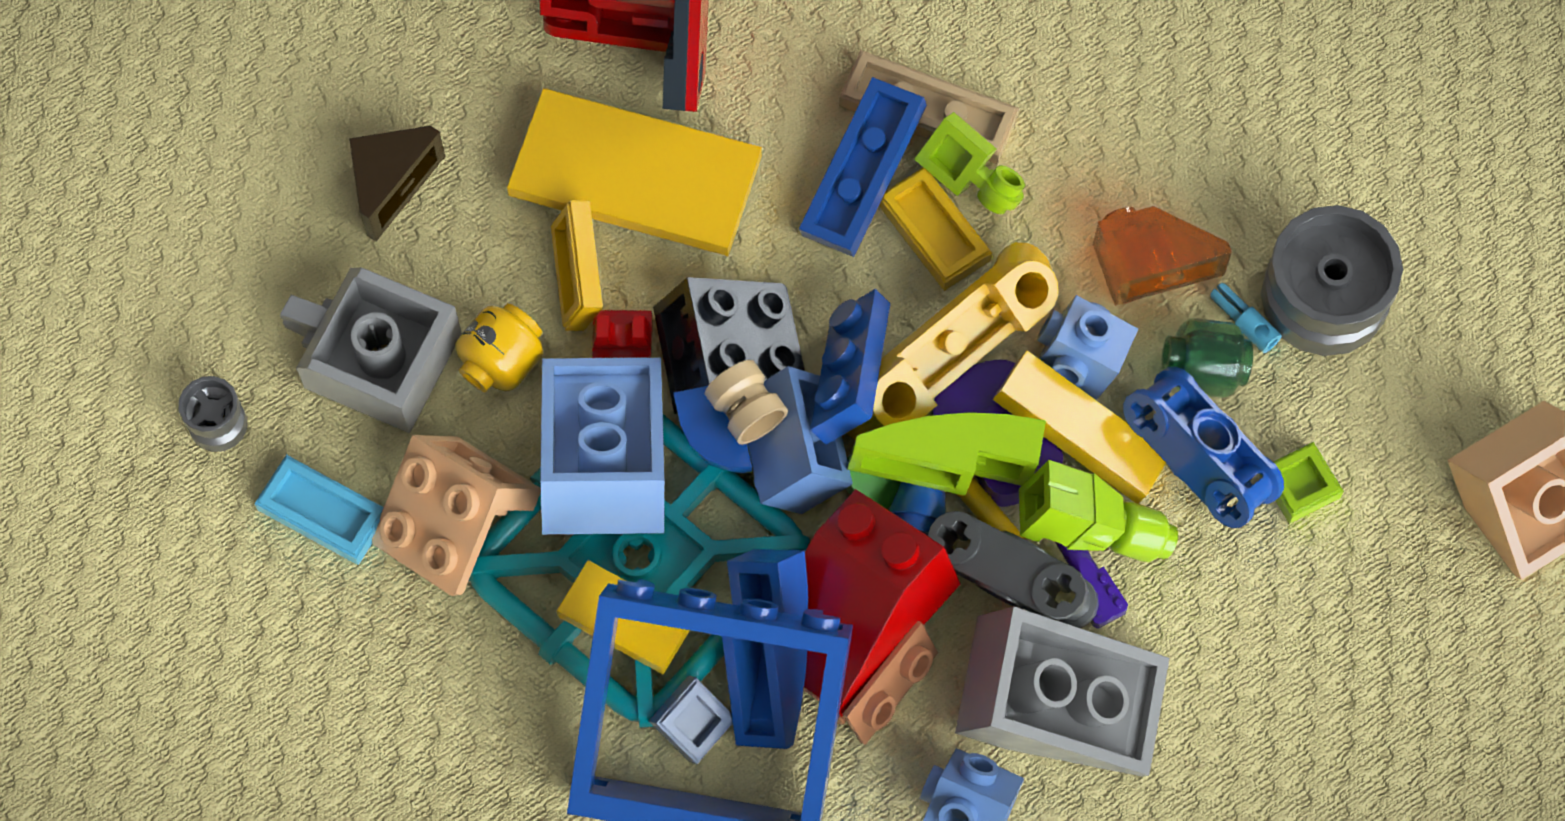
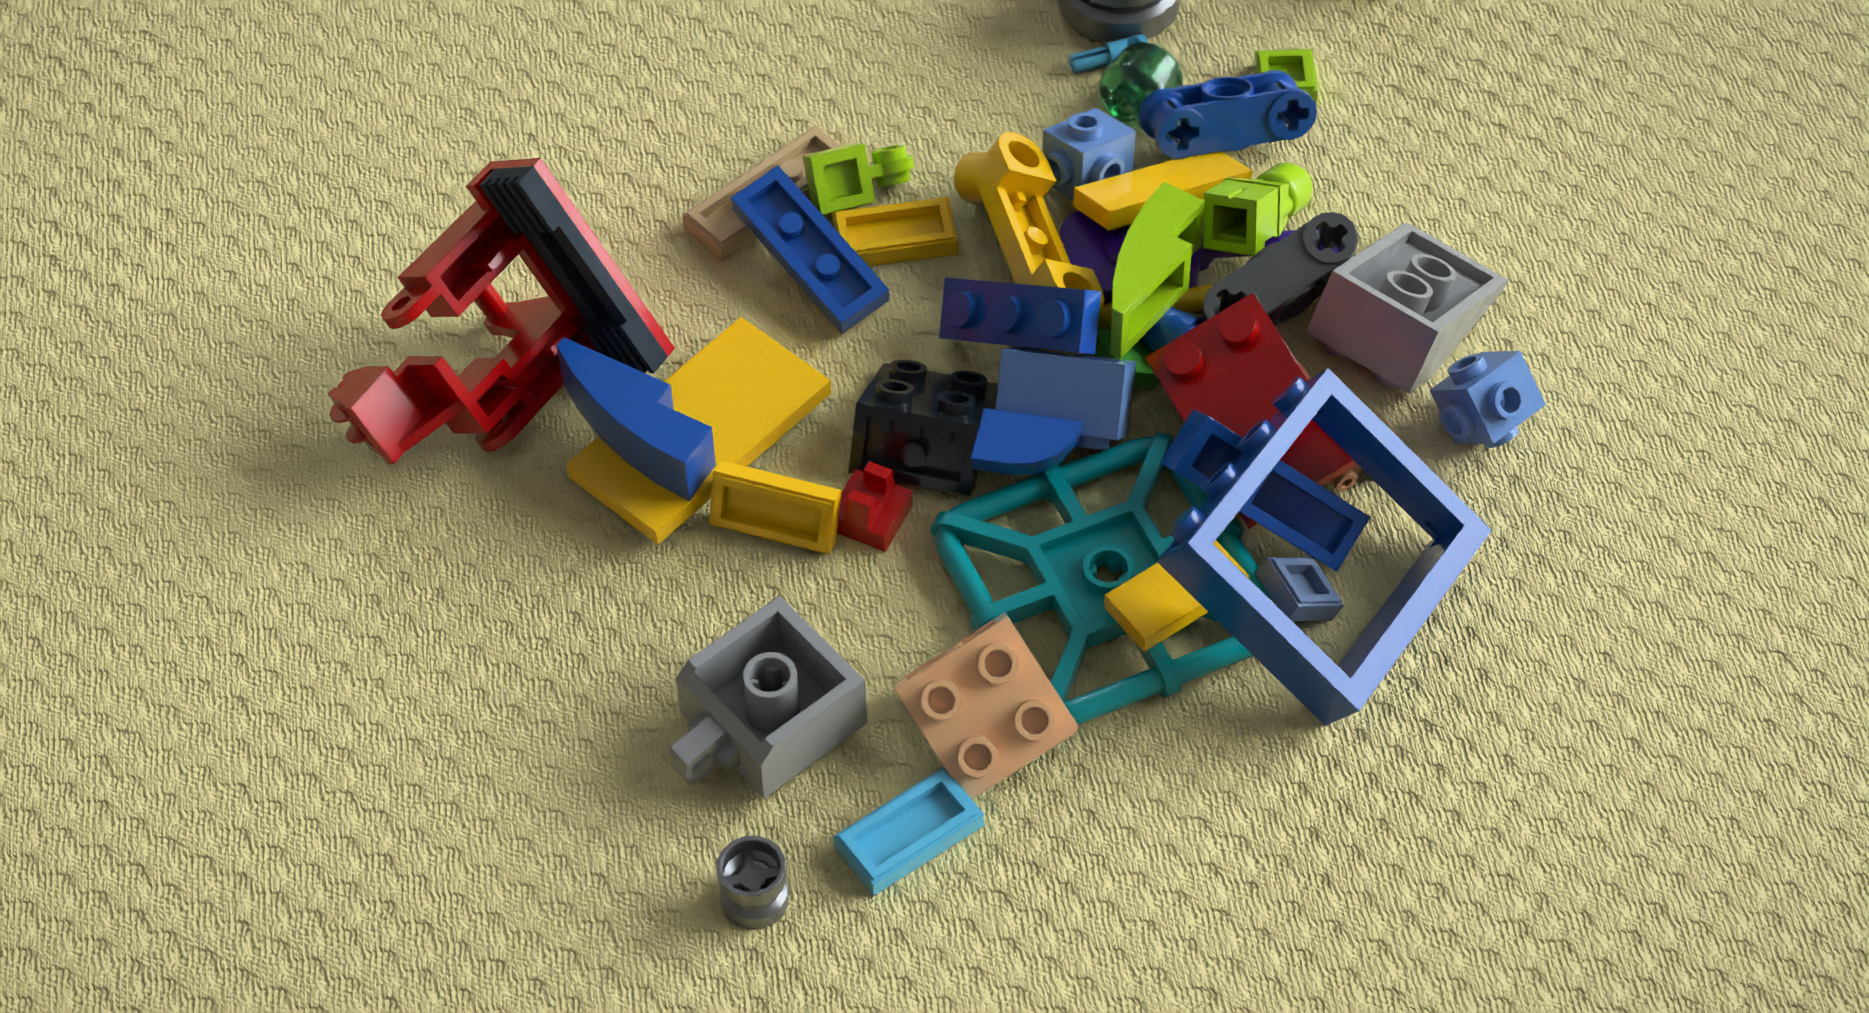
camera: 65 degrees left, 15 degrees down
(391, 171) = (573, 634): dark brown slope -> none
(499, 348) = (830, 596): yellow head -> none
(592, 117) = (638, 419): none -> blue slope
(602, 446) = (995, 536): light blue slope -> none
(746, 402) = (1011, 393): tan wheel -> none
(1155, 253) = (1016, 83): clear orange slope -> none

